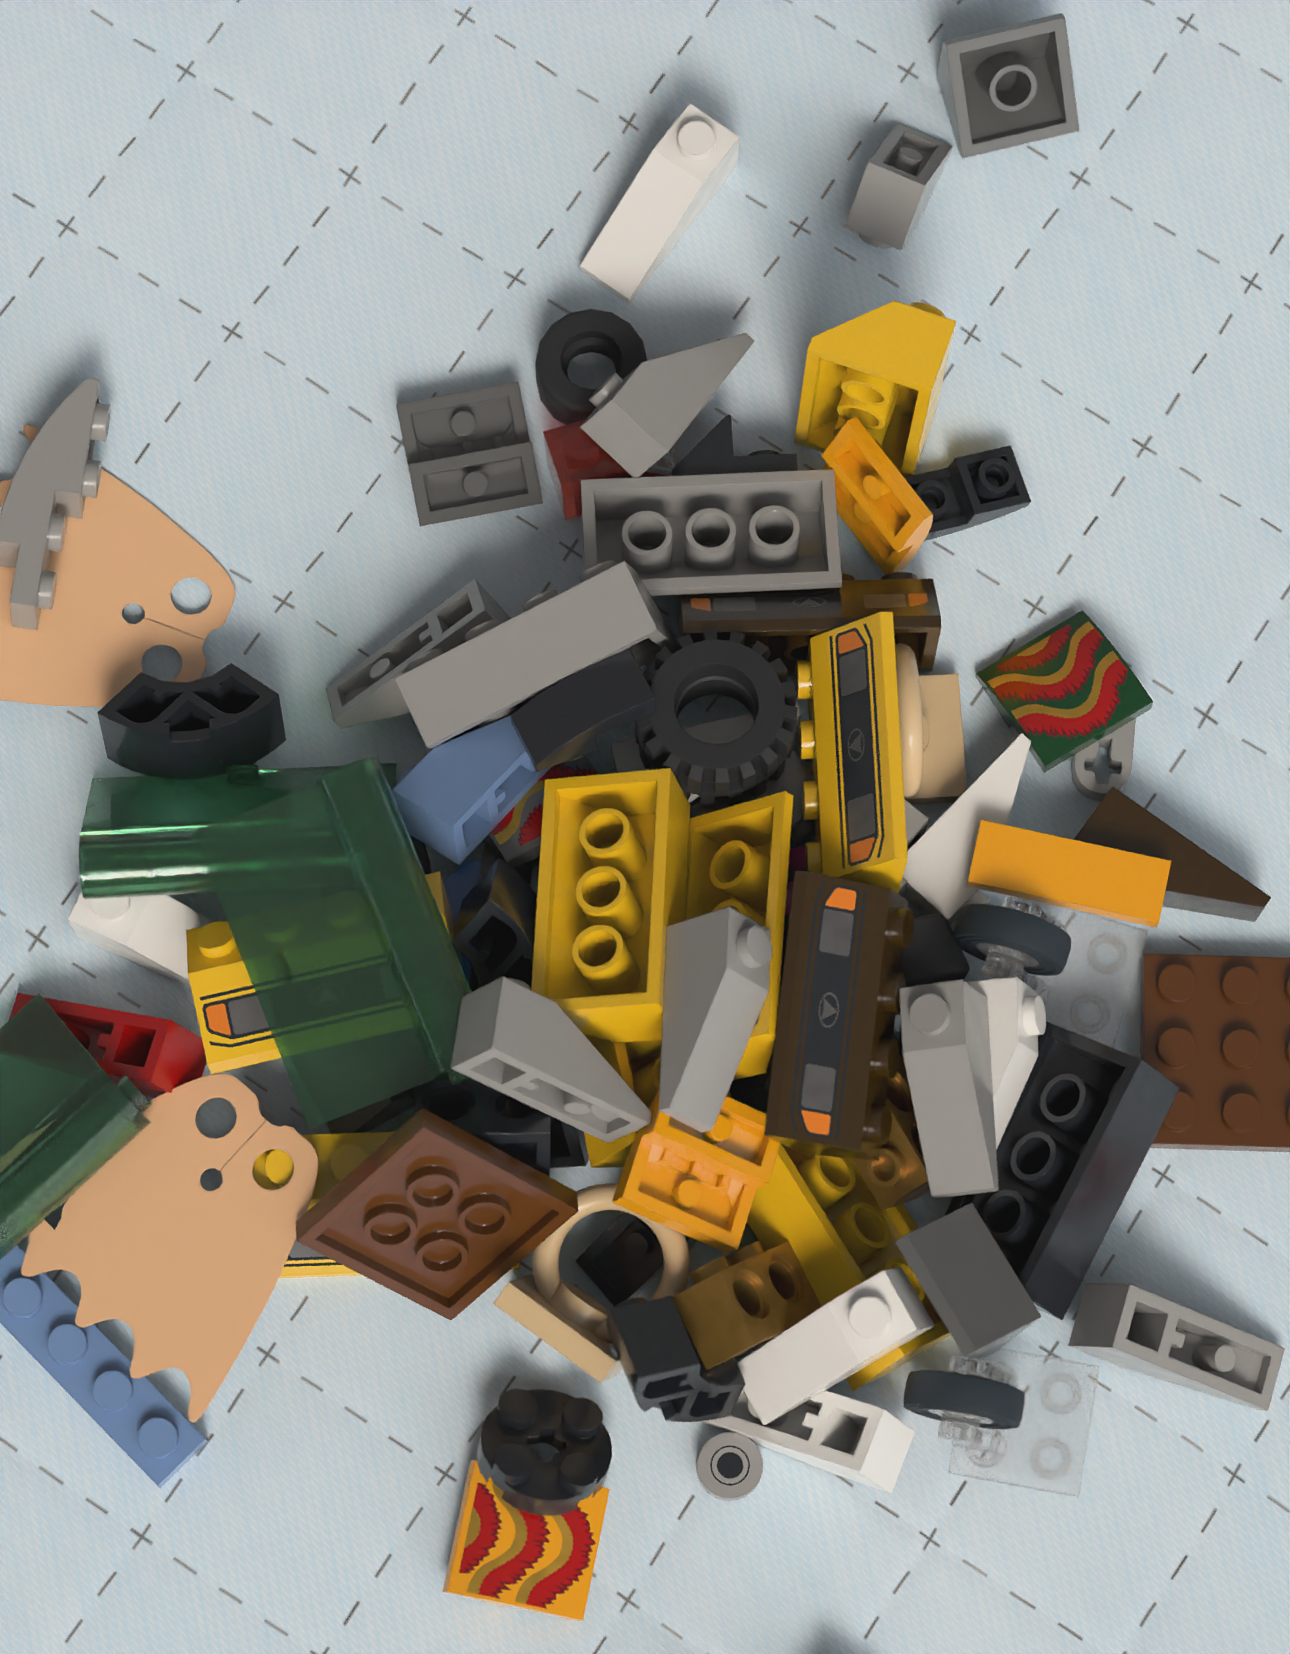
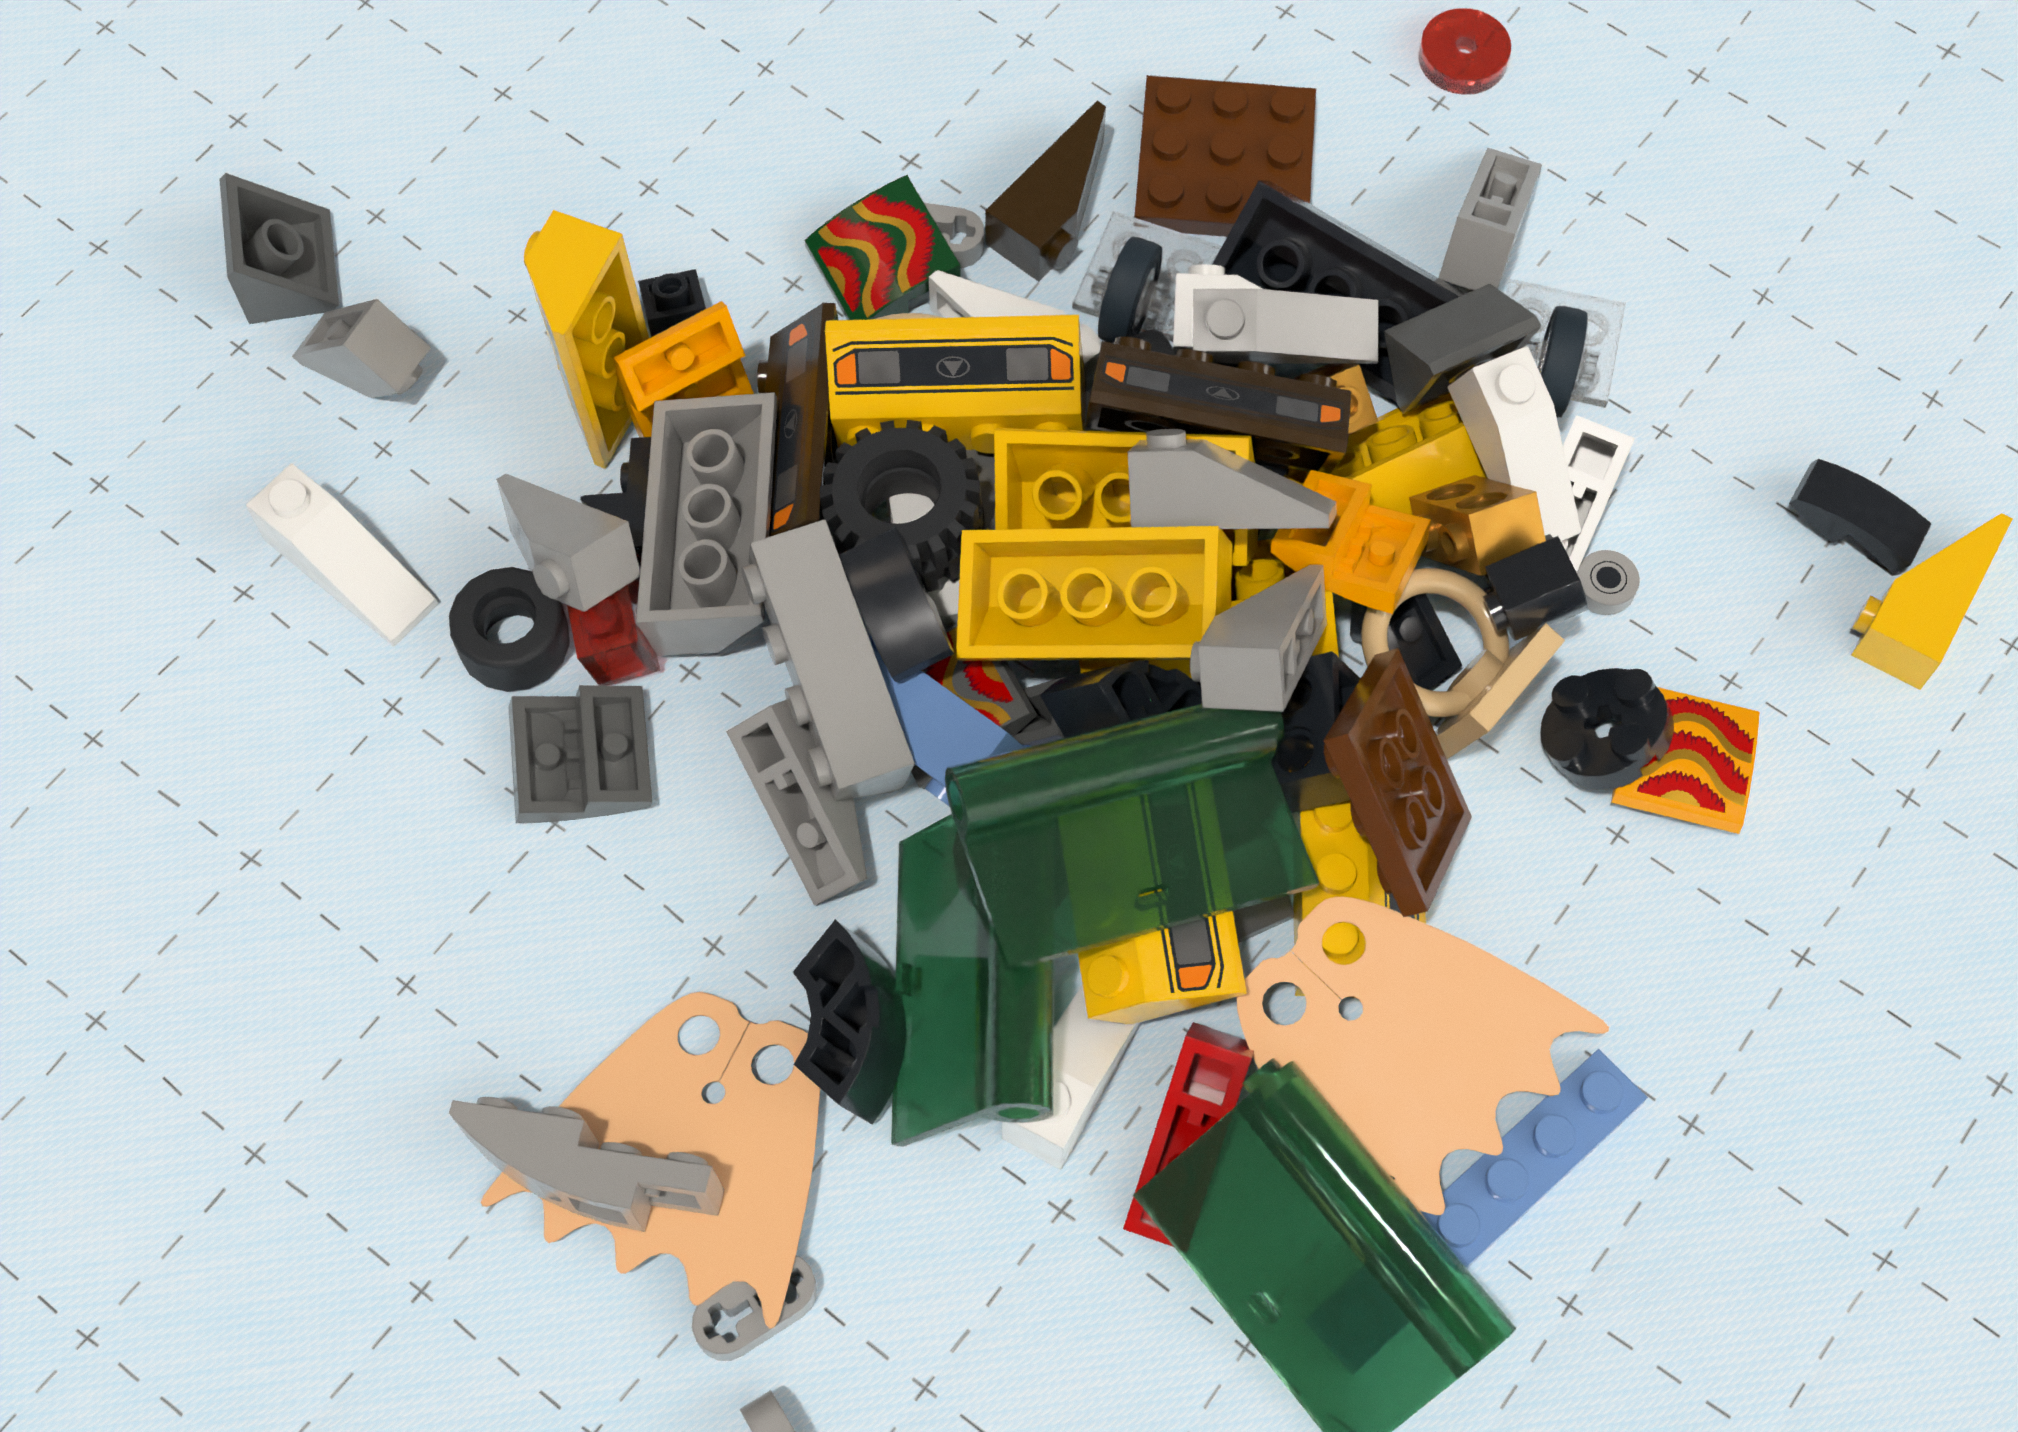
camera: 85 degrees left, 10 degrees down
(1068, 873) = (1069, 241): light orange tile -> none

